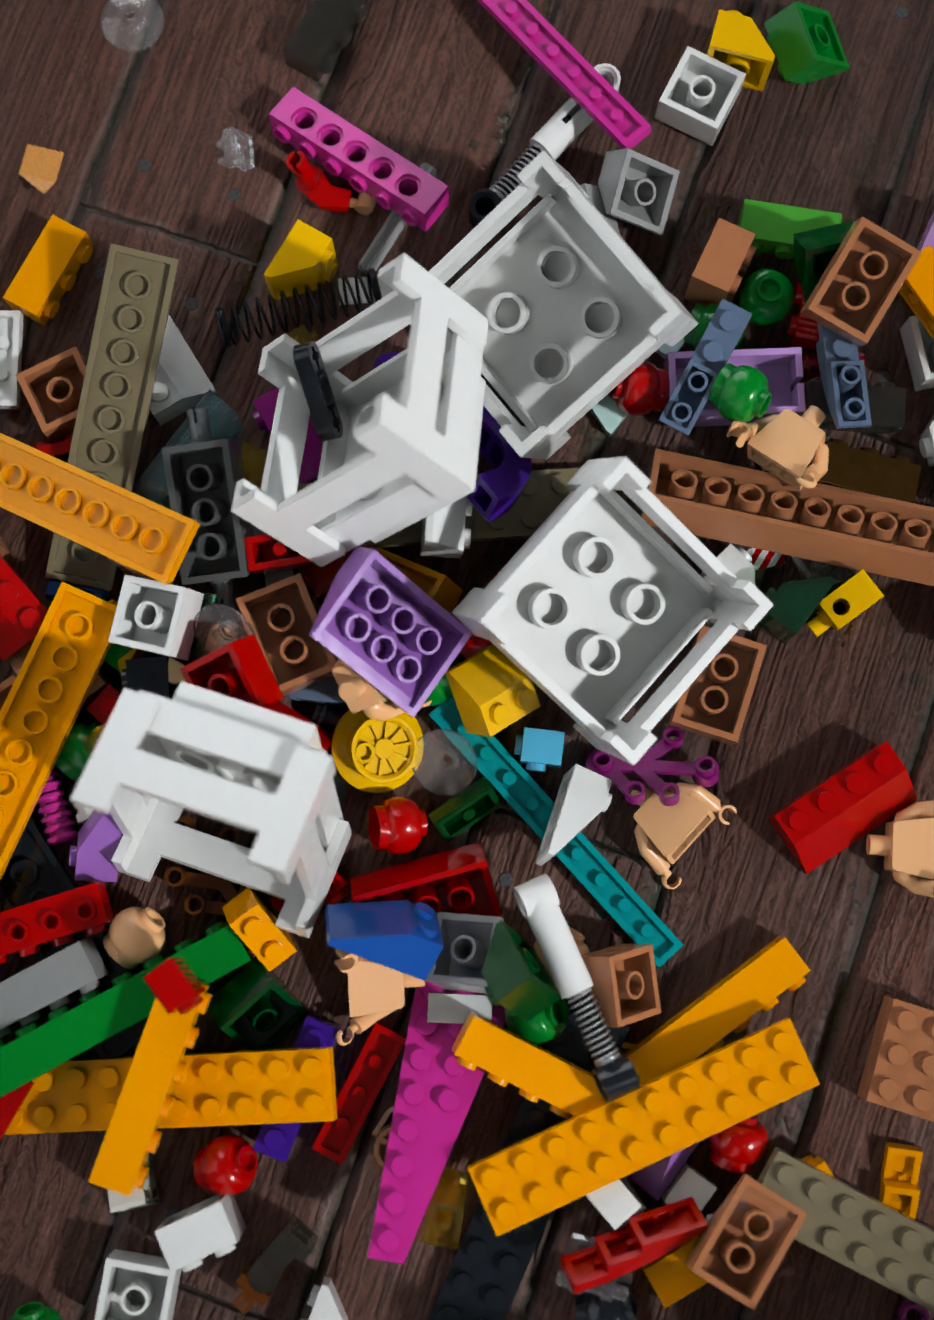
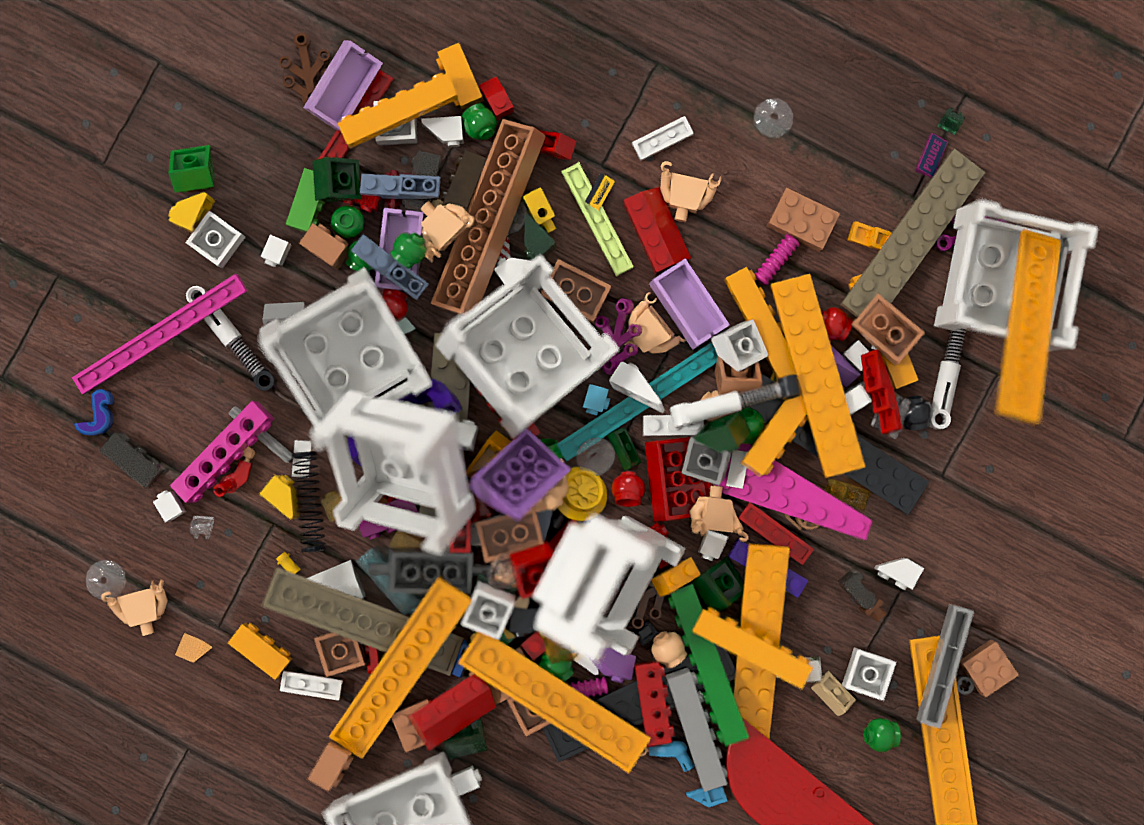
camera: 80 degrees left, 5 degrees up
(93, 73) = (139, 607): none -> light nougat torso
(97, 1238) = (833, 694): none -> tan slope
(157, 895) = (646, 634): none -> black slope
(175, 986) = (702, 624): red brick -> none
(194, 292) = (287, 563): none -> yellow pin
(200, 1231) = (838, 633): white brick -> none
(225, 1165) = (805, 614): red piece -> none
(260, 93) = (169, 505): none -> white brick
(317, 391) = (371, 496): black beam -> none
(323, 984) = (712, 545): none -> white slope
(387, 933) = (690, 502): blue slope -> none
(490, 692) = (561, 423): yellow slope -> none
(513, 869) = (664, 426): none -> white brick
(637, 189) = (270, 288): light grey slope -> none
(673, 980) = (740, 345): none -> white slope
(697, 193) = (275, 251): none -> white brick
(729, 880) = (689, 304): none -> lavender piece
(831, 1022) = (777, 259): none -> dark pink piece
(843, 705) = (597, 221): none -> yellowish green tile
(861, 281) = (356, 169): nougat brick -> none
(891, 701) = (599, 191): none -> sticker

